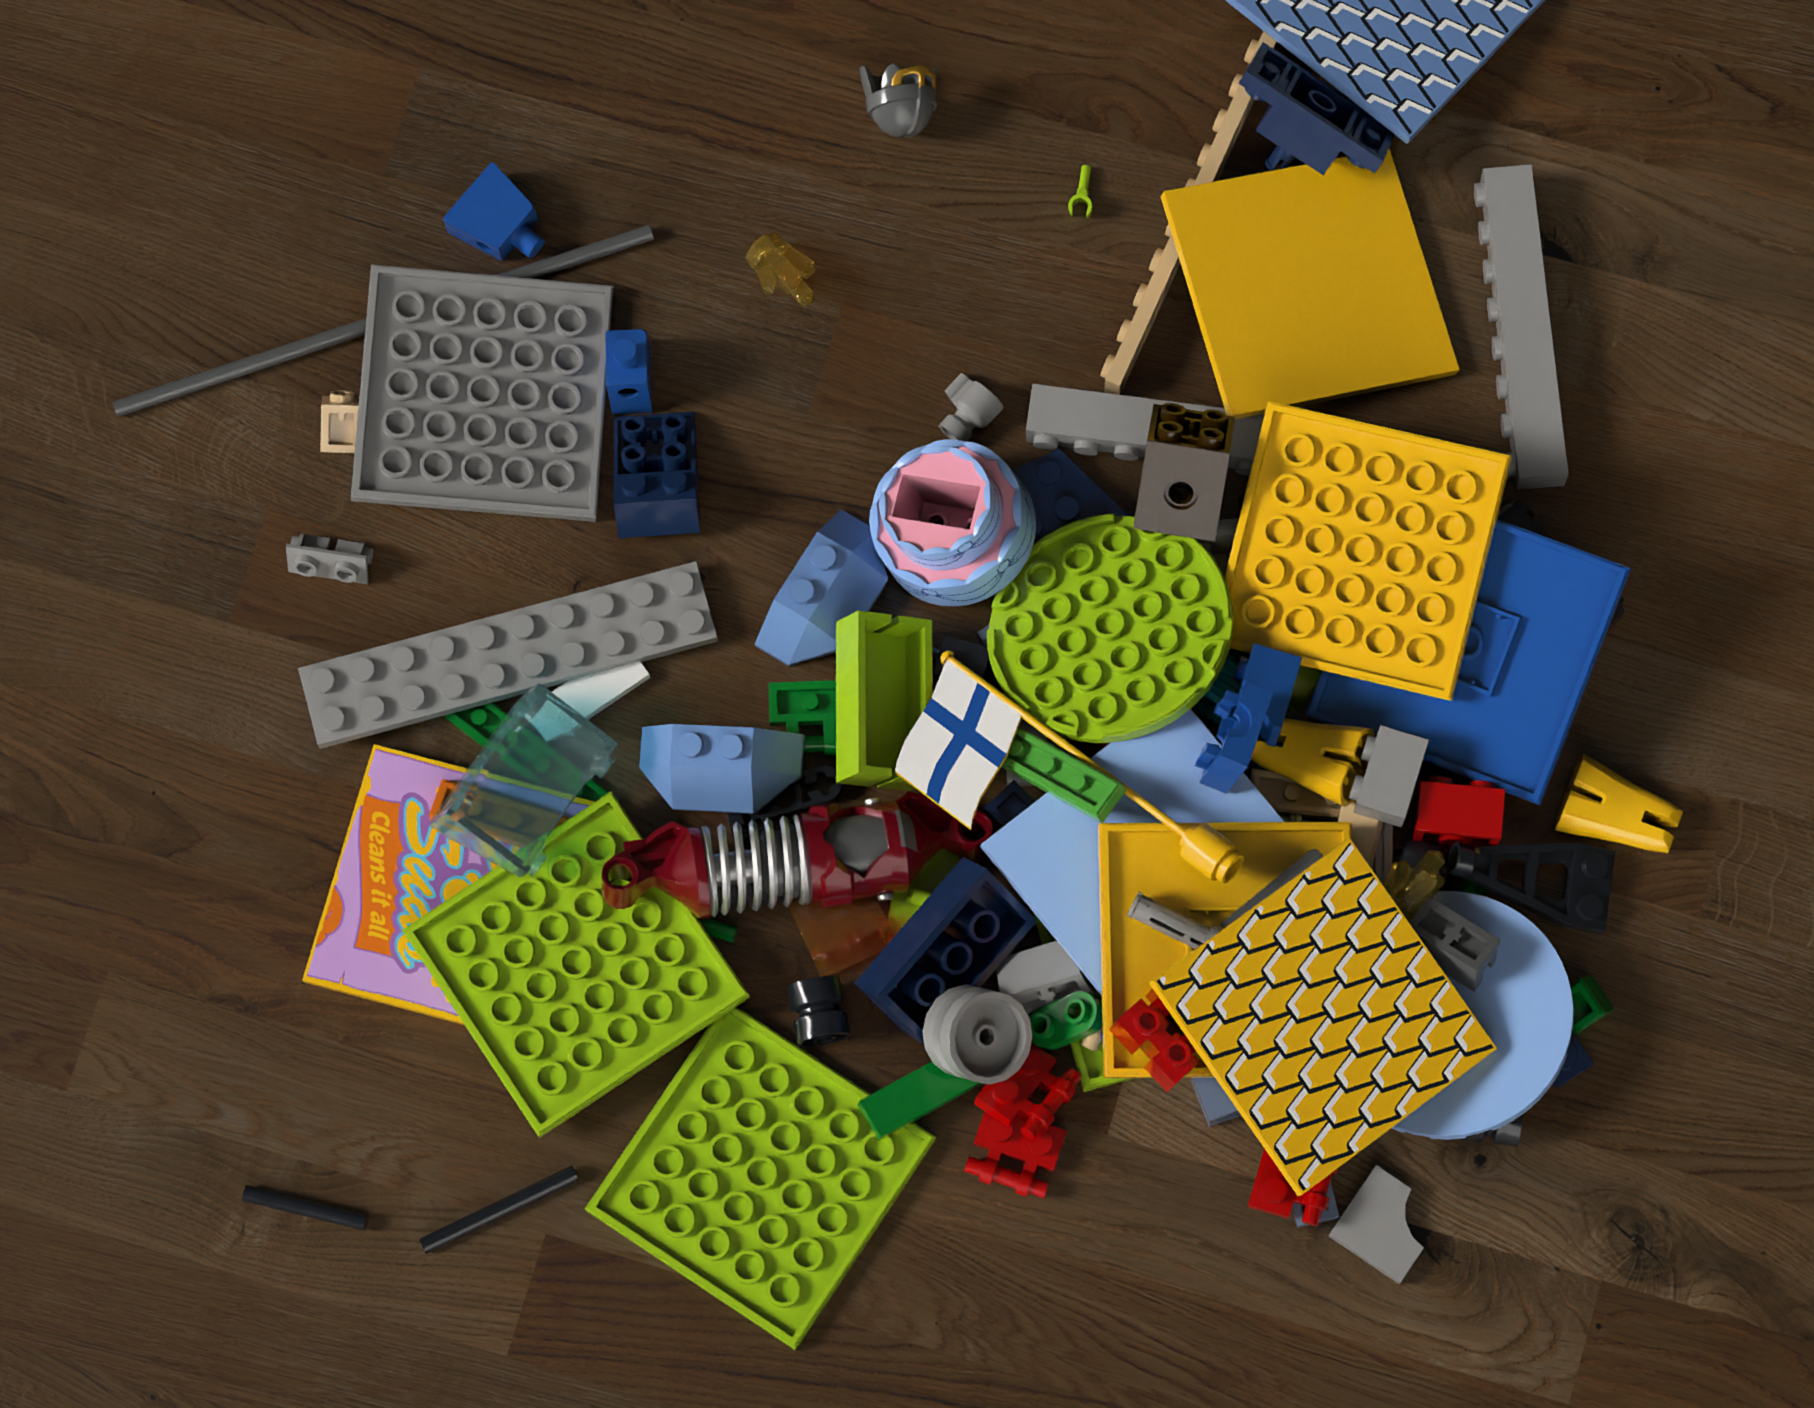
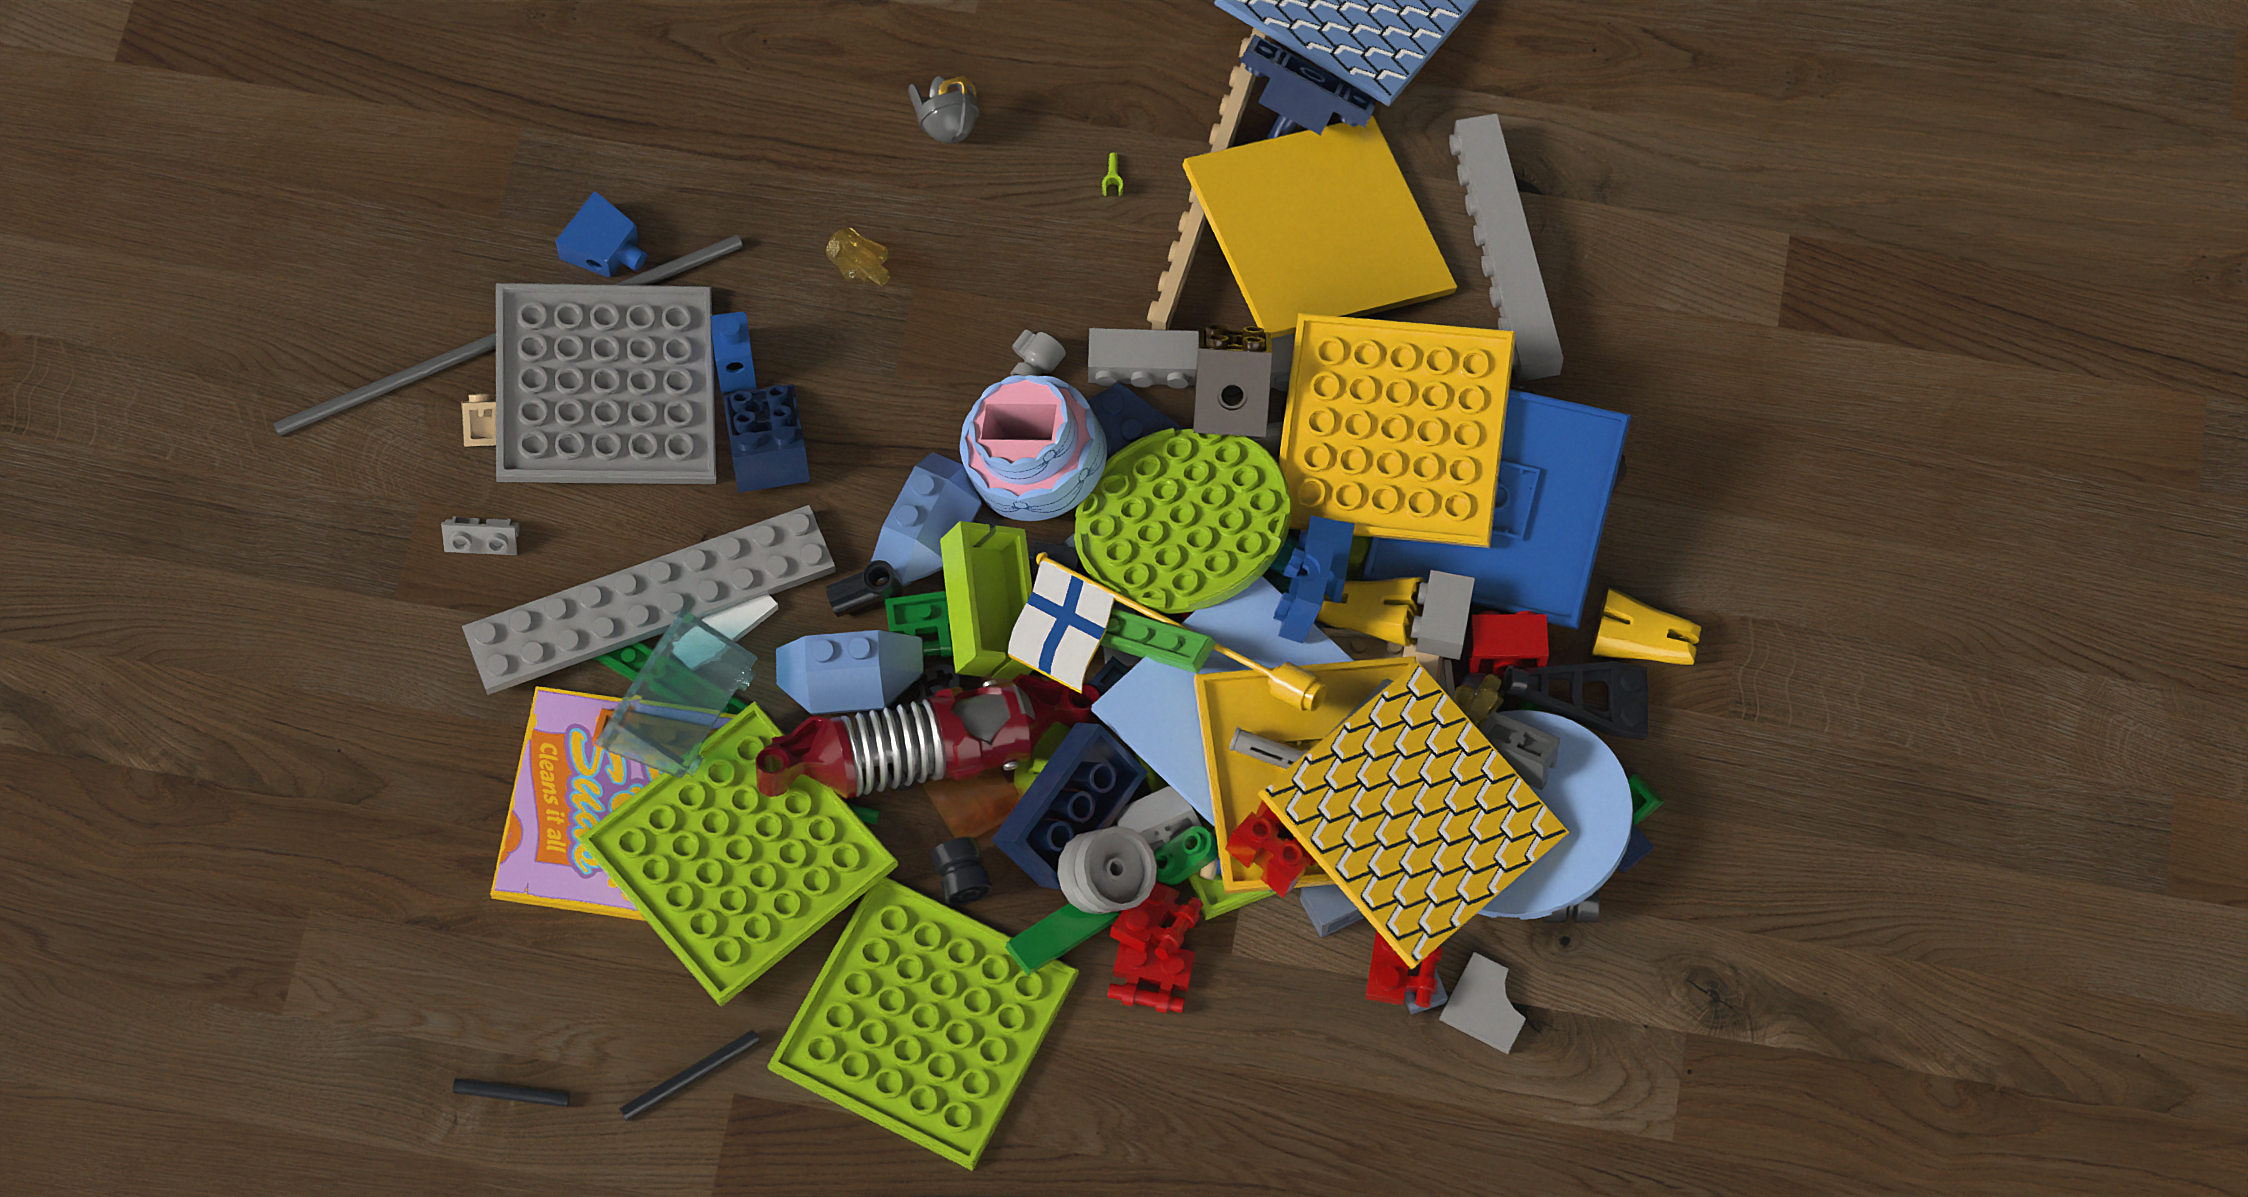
camera: 15 degrees left, 10 degrees down
(743, 669) = (861, 588): none -> black piece

